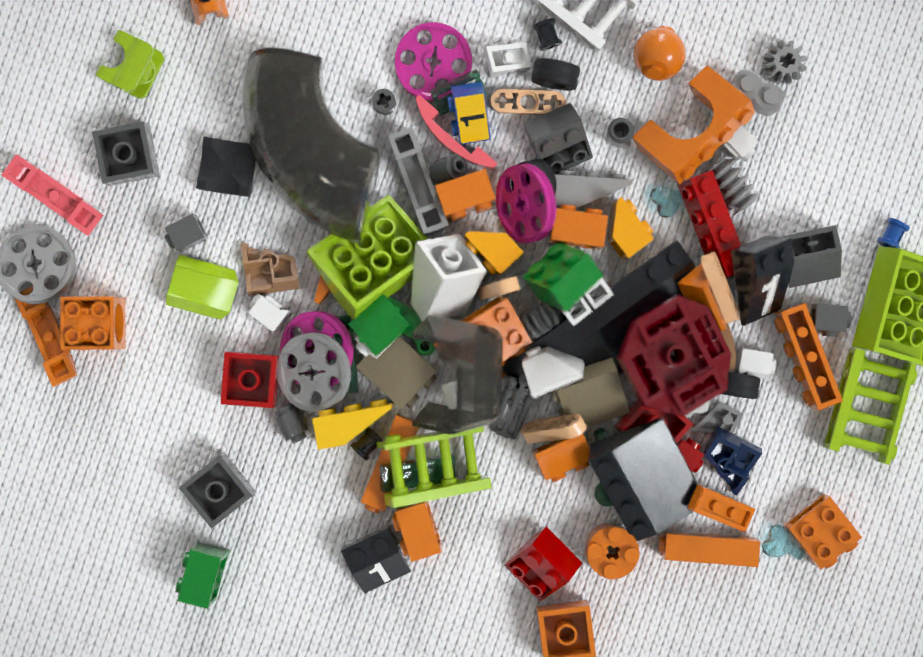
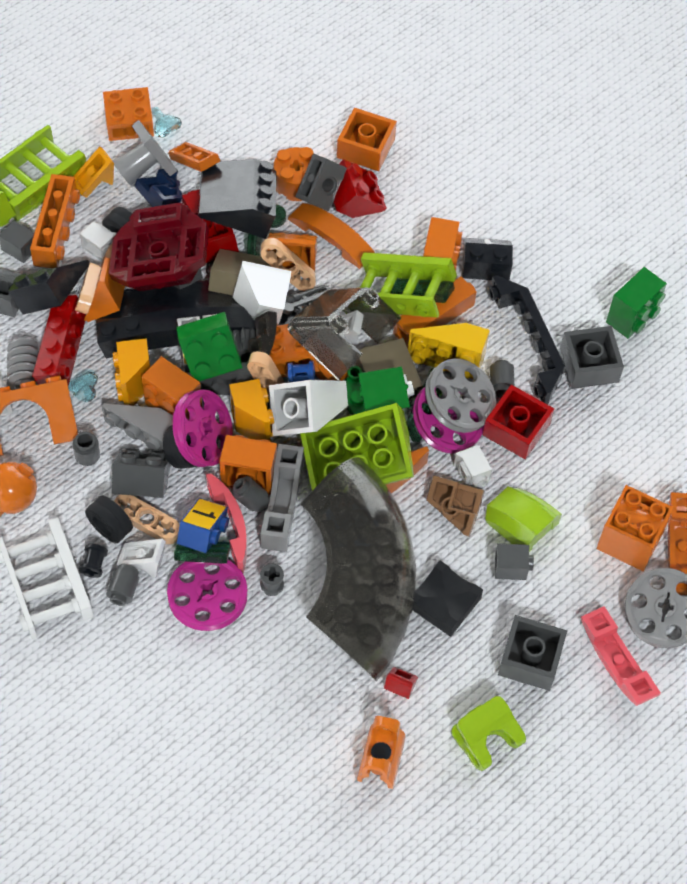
camera: 155 degrees left, 30 degrees down
(226, 75) = (400, 682): none -> red slope
(246, 439) = (509, 293): none -> black slope
(467, 306) = (300, 369): none -> blue bush
(507, 25) = (123, 585): none -> dark grey brick
(519, 314) = (265, 333): none -> clear smoke slope
(540, 502) = (333, 231): none -> orange slope
(575, 541) = (321, 182): none -> dark grey brick
(709, 548) = (212, 136): orange brick -> none
(766, 486) = (142, 157): none -> light grey plant
(808, 434) = (94, 171): none -> light orange slope

